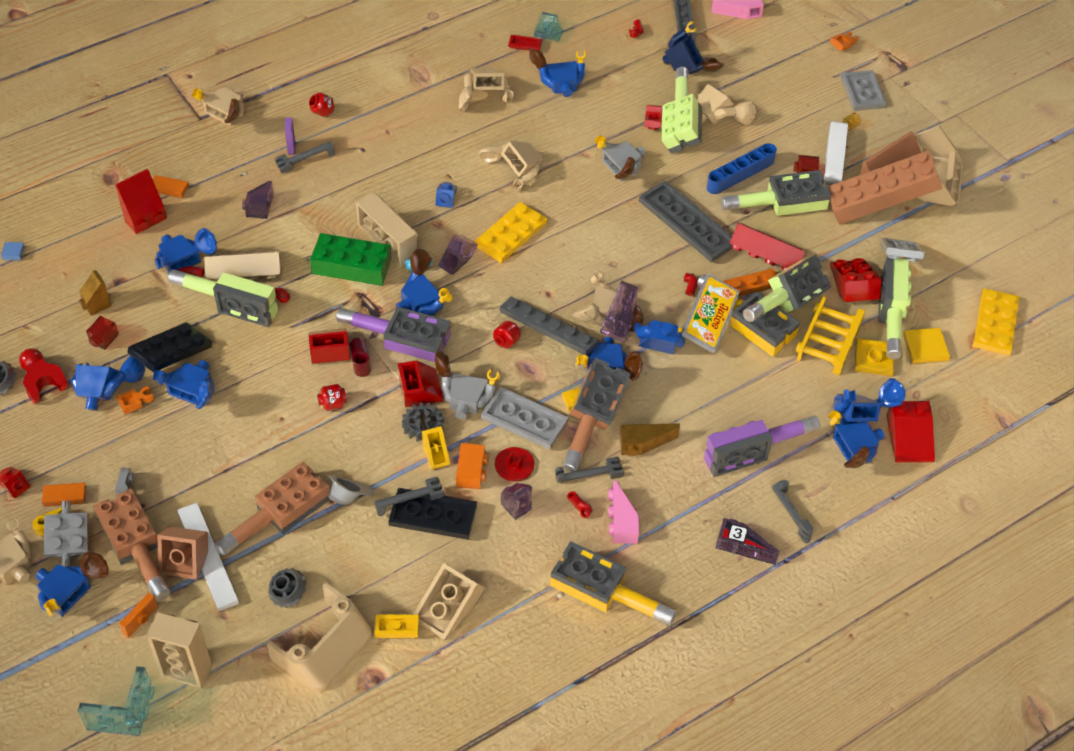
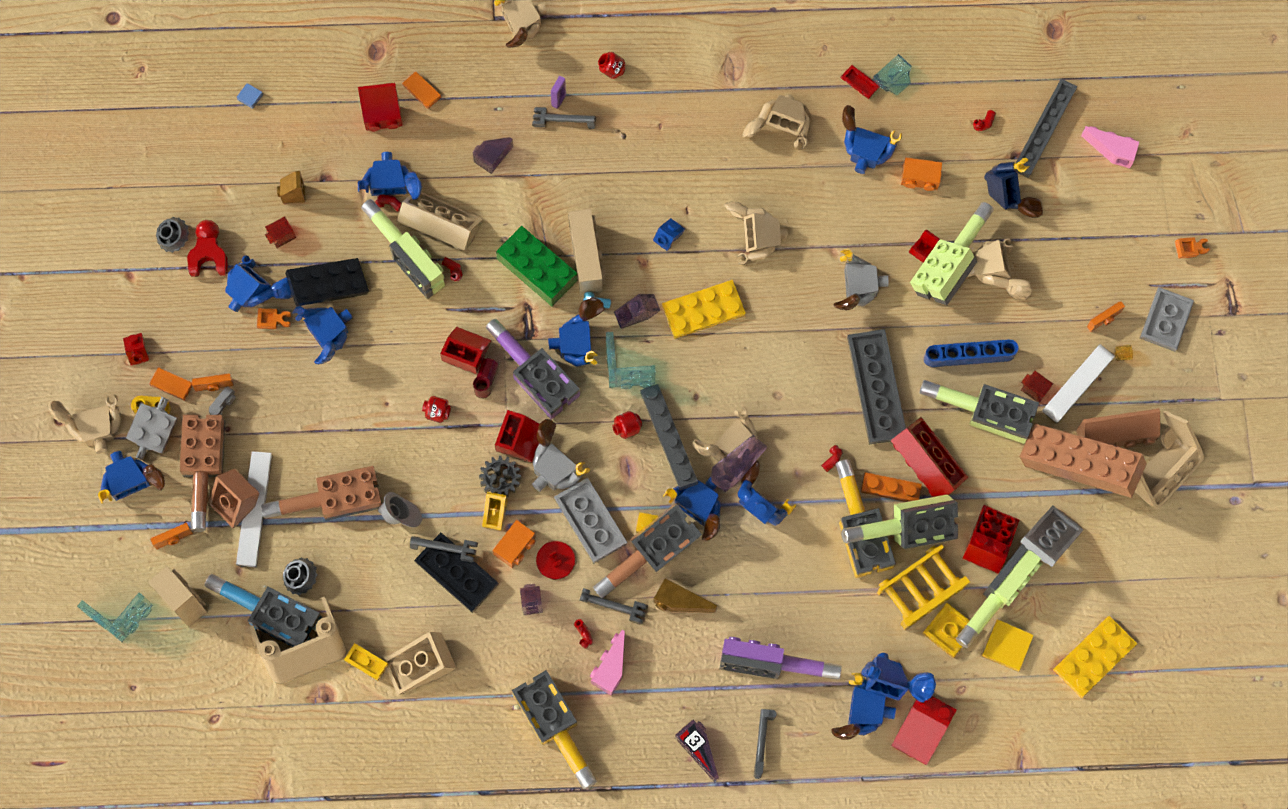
camera: 30 degrees right, 20 degrees up
(105, 472) = (212, 383): none -> orange plate
(282, 624) = (272, 612): none -> dark grey piece
(478, 299) = (626, 377): none -> clear light blue bracket
(615, 76) = (921, 174): none -> orange brick
(710, 313) = (819, 508): tile -> none
(820, 105) = (1106, 317): none -> orange plate

